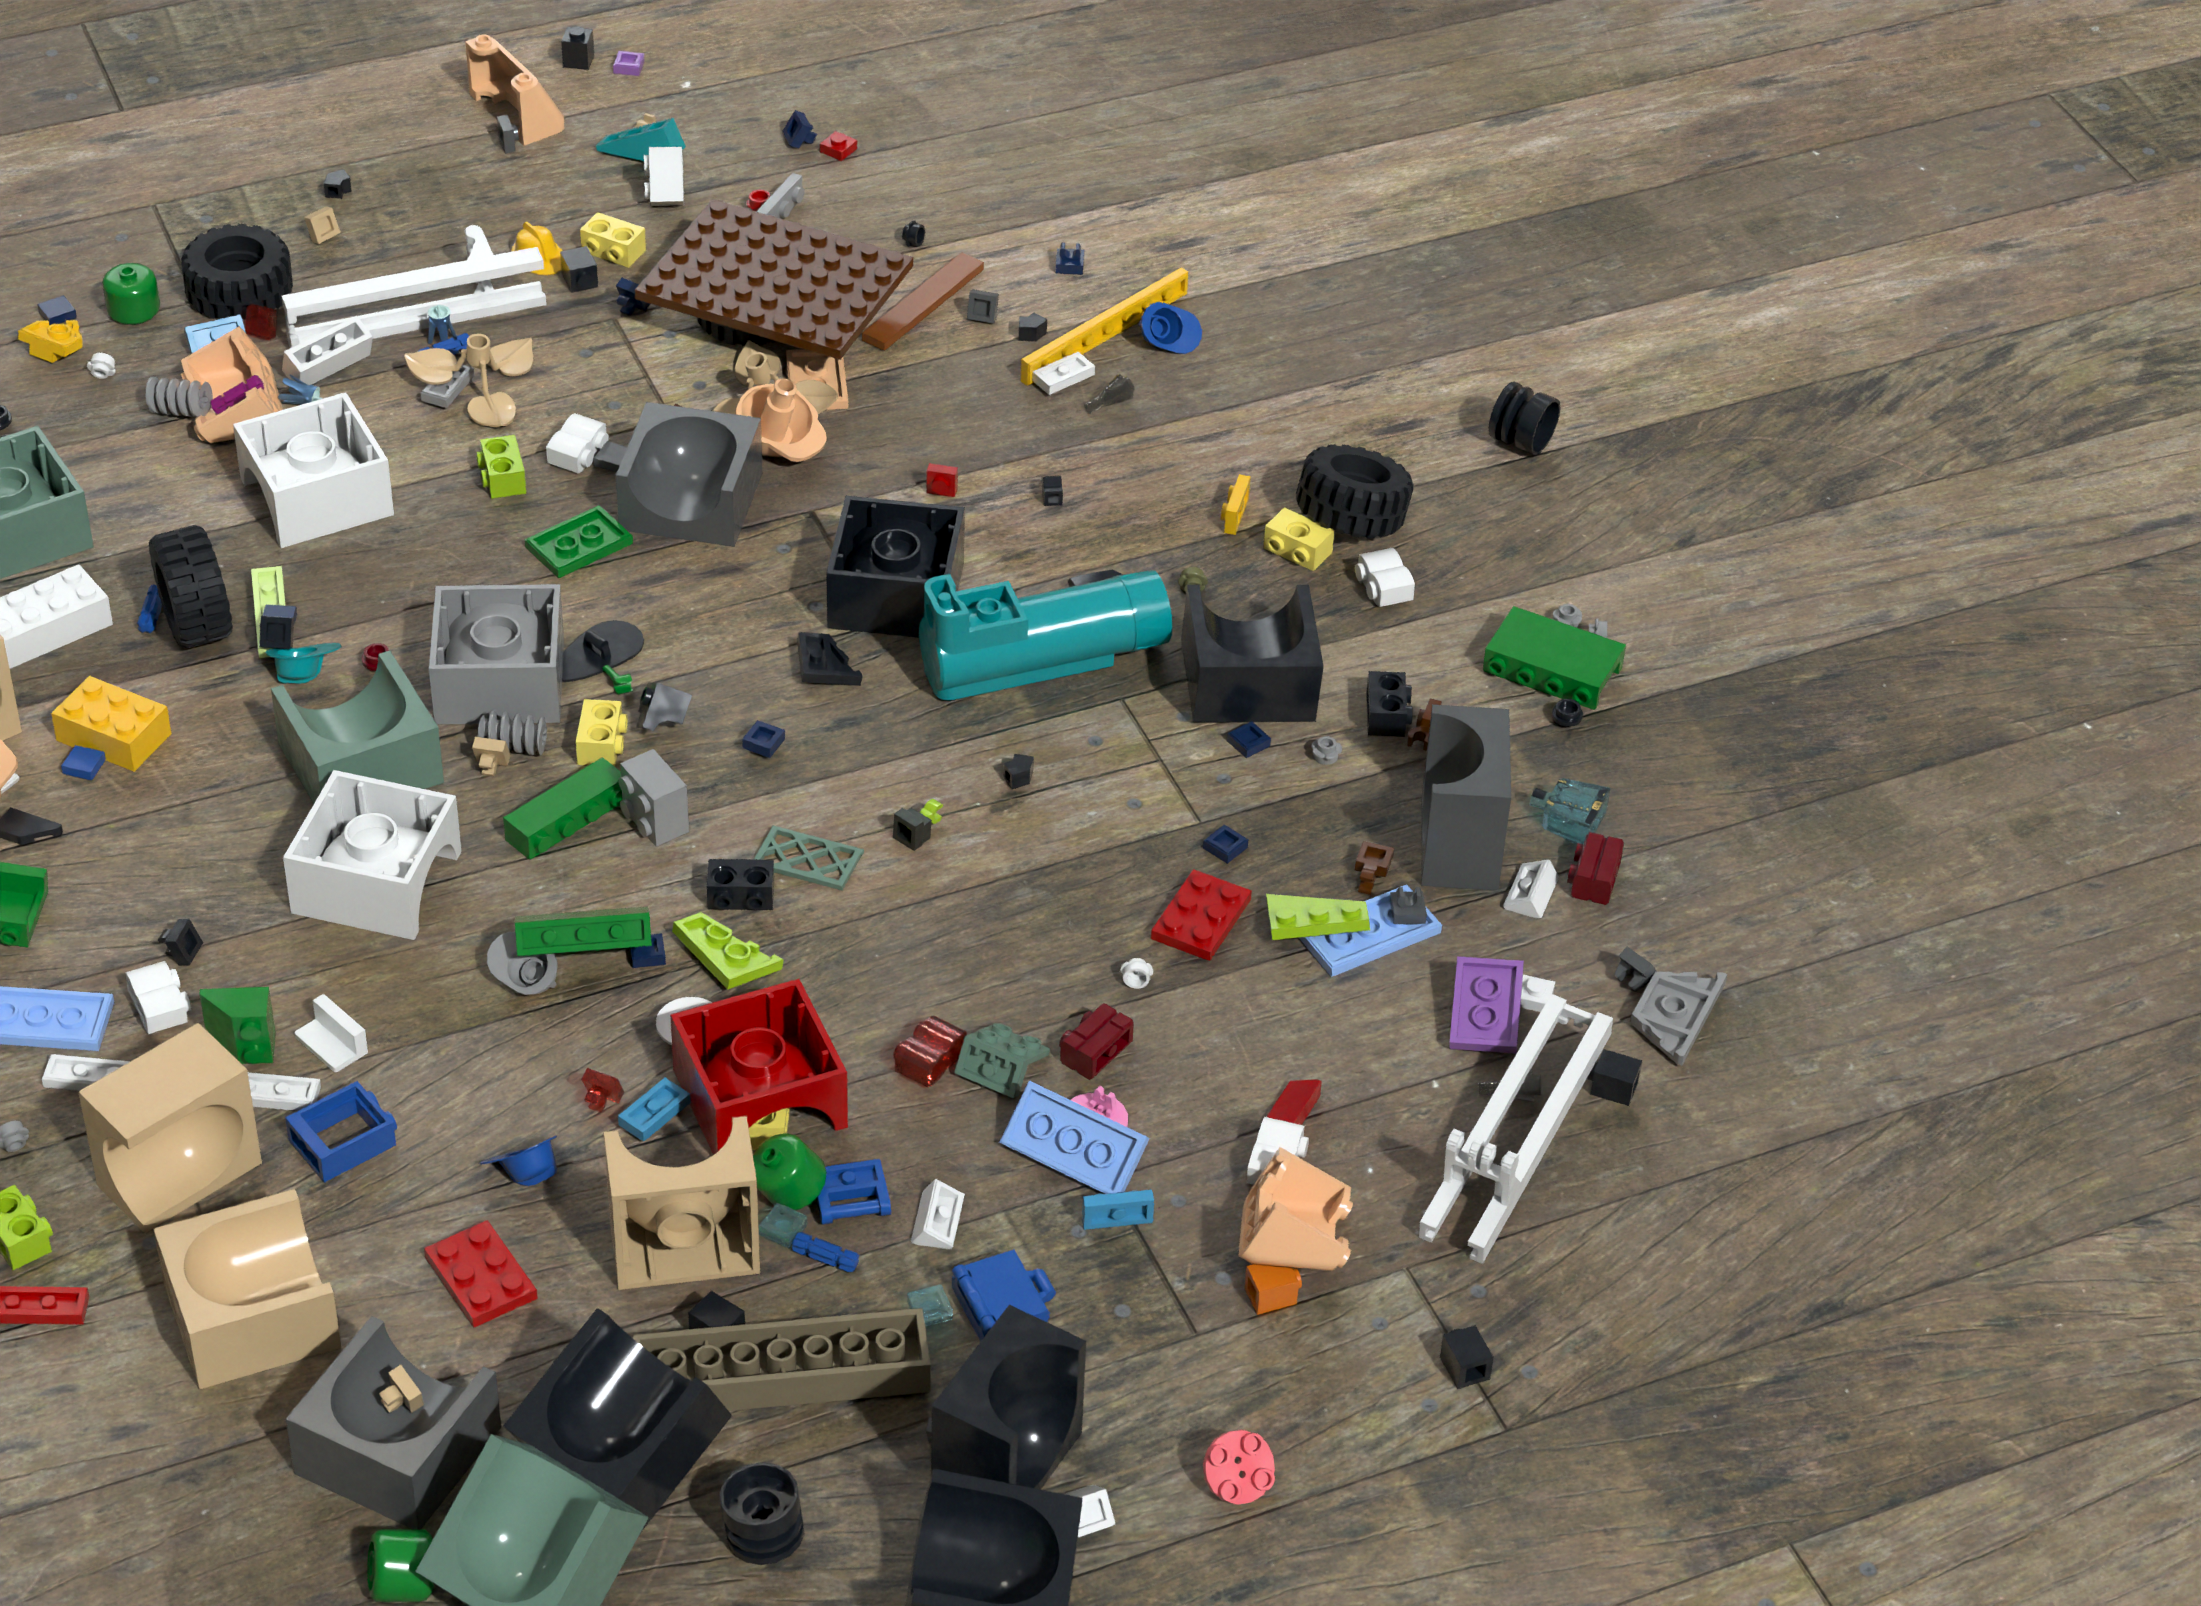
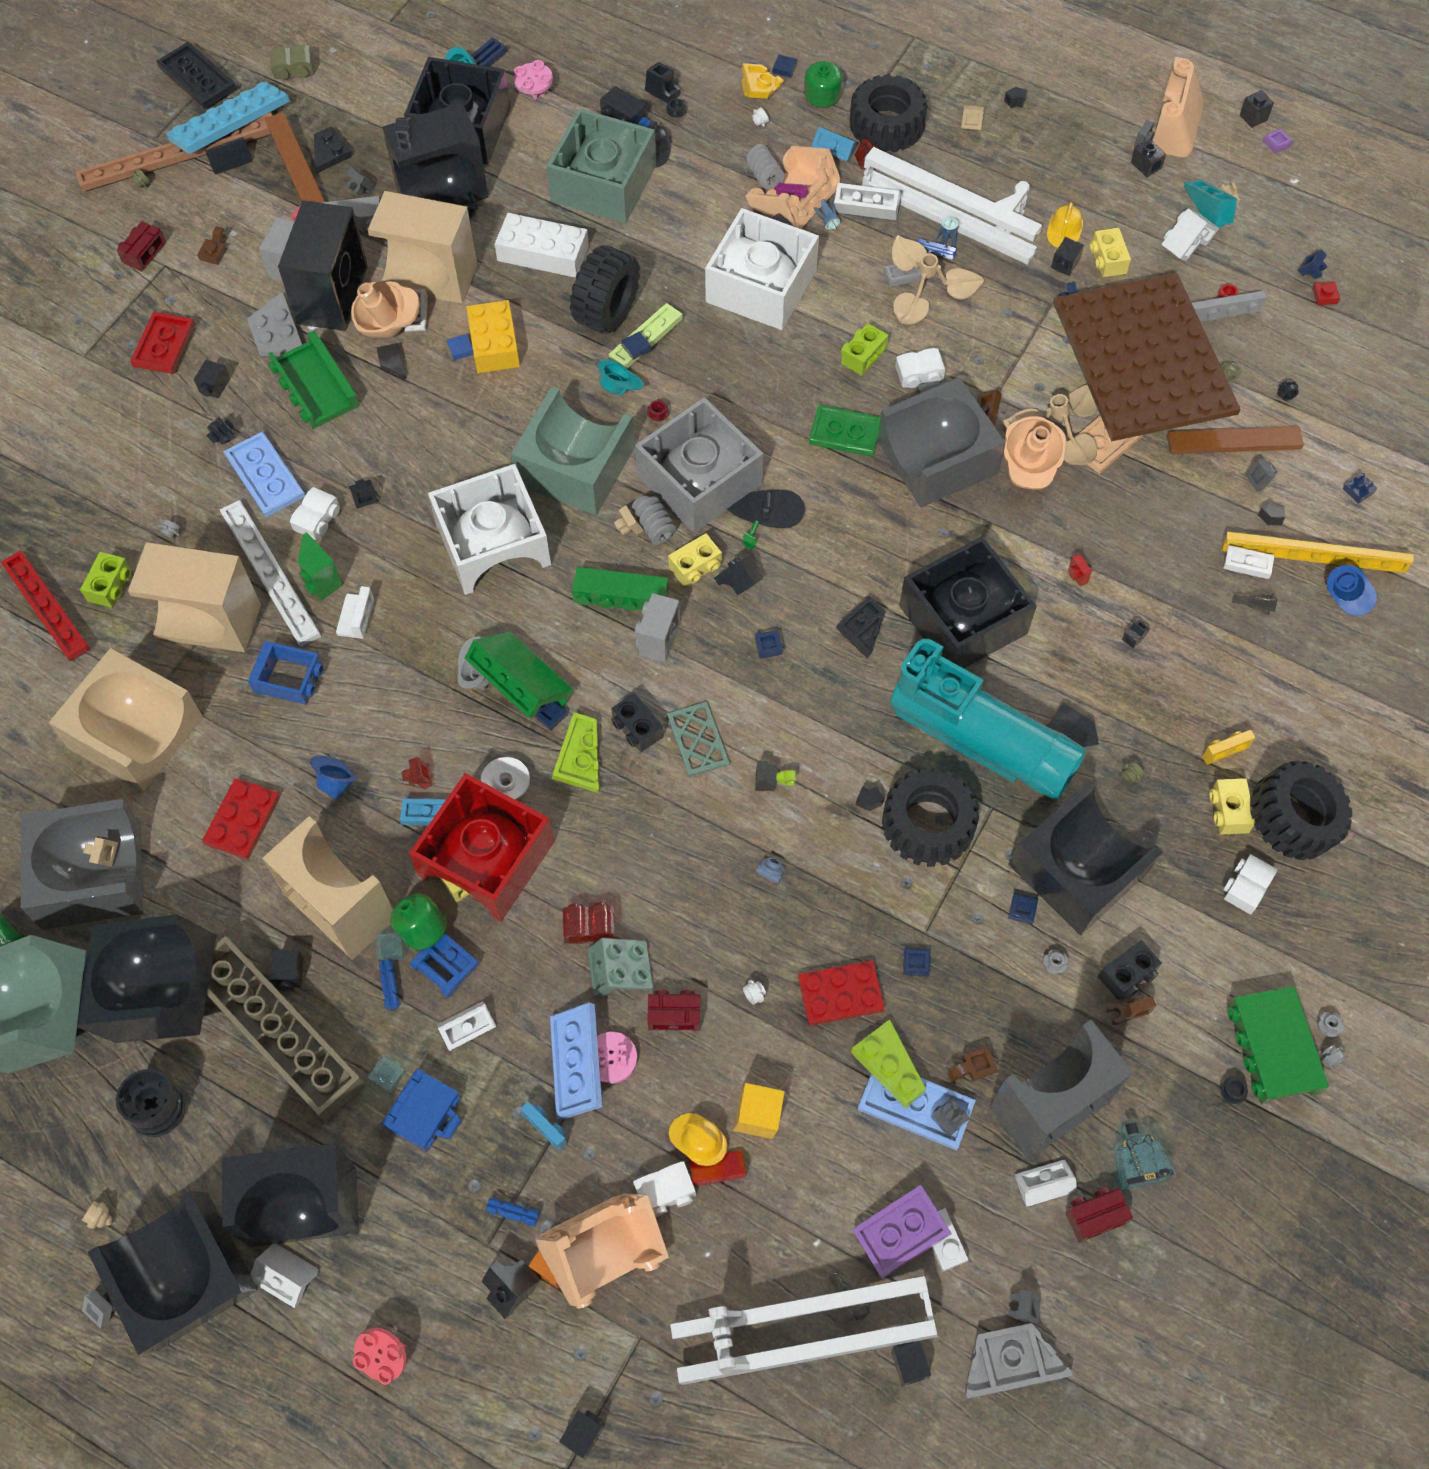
camera: 55 degrees right, 20 degrees up
(276, 632) = (620, 352): black plate -> none
(536, 148) = (1148, 158): none -> black brick
(1018, 886) = (771, 869): none -> sand blue plate
(1085, 759) = (935, 788): none -> black tyre
(1183, 1289) = (512, 1211): none -> blue axle
(1247, 1099) = (698, 1139): none -> yellow piece
(1264, 1326) = (509, 1286): none -> black brick
(1267, 1032) = (758, 1111): none -> yellow head

